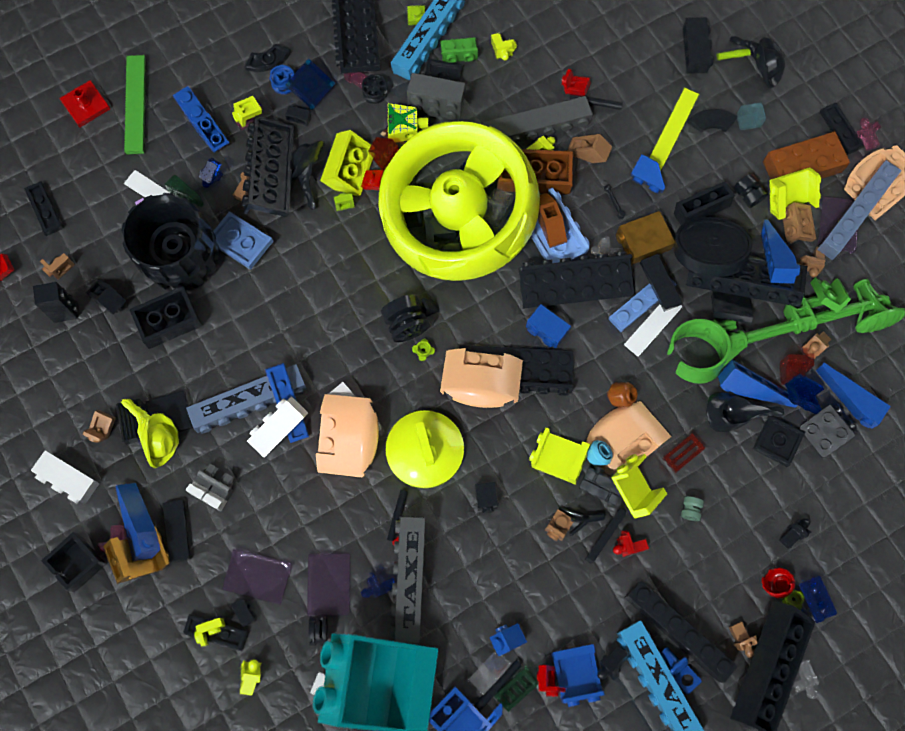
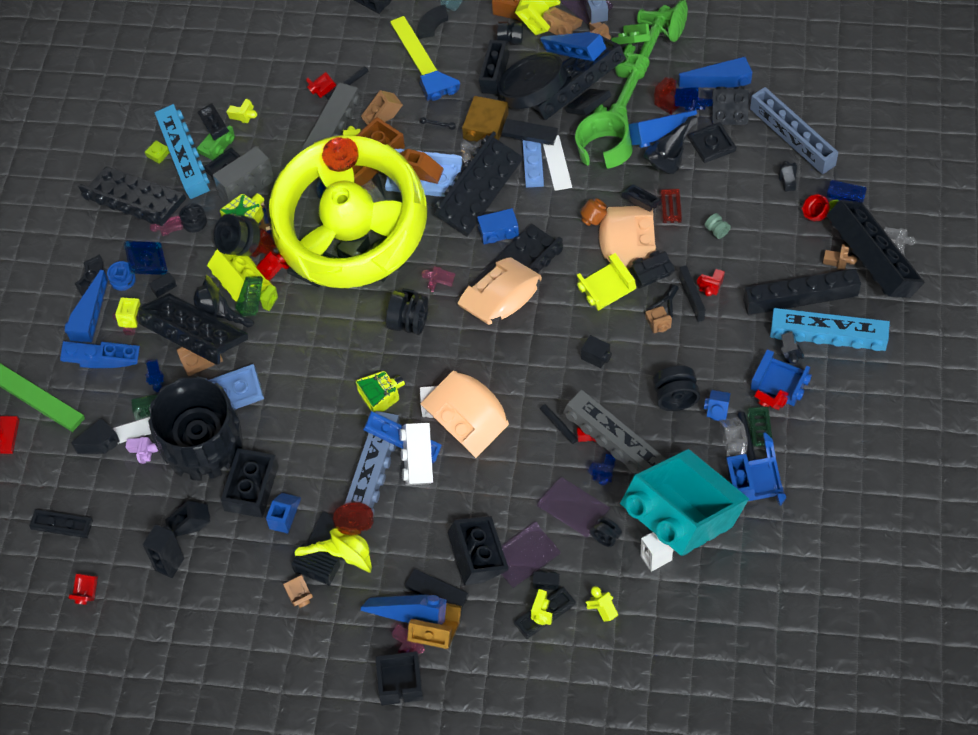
camera: 45 degrees left, 15 degrees down
(59, 267) = (127, 541): medium nougat bracket -> none
(64, 478) = (319, 645): white brick -> none
(129, 177) = (96, 439): none -> black slope
(160, 361) = (282, 512): none -> blue slope
(180, 422) = (353, 518): none -> clear red tile
(211, 490) = (424, 539): hips -> none
(229, 82) = (86, 313): none -> blue slope
(229, 539) = (477, 549): none -> black slope
(320, 352) = (379, 390): none -> torso
(326, 189) = (250, 307): none -> clear green slope
(370, 134) = (236, 235): none -> black wheel
(423, 344) = (437, 318): lime plate -> none
(424, 449) = (522, 370): neon yellow bracket -> none
(462, 314) = (438, 276): none -> clear pink piece
(472, 32) = (213, 121): none -> black tile
(491, 155) = (340, 154): none -> clear red tile
(496, 591) = (676, 388): none -> black wheel
(599, 453) = (627, 253): medium azure cone -> none
(634, 488) = (687, 250): neon yellow panel -> none
(666, 423) = (641, 198): none -> black tile
(679, 669) = (827, 309): blue bracket -> none
(816, 345) = (661, 70): medium nougat piece -> none
(846, 505) = (794, 130): none -> sand blue brick

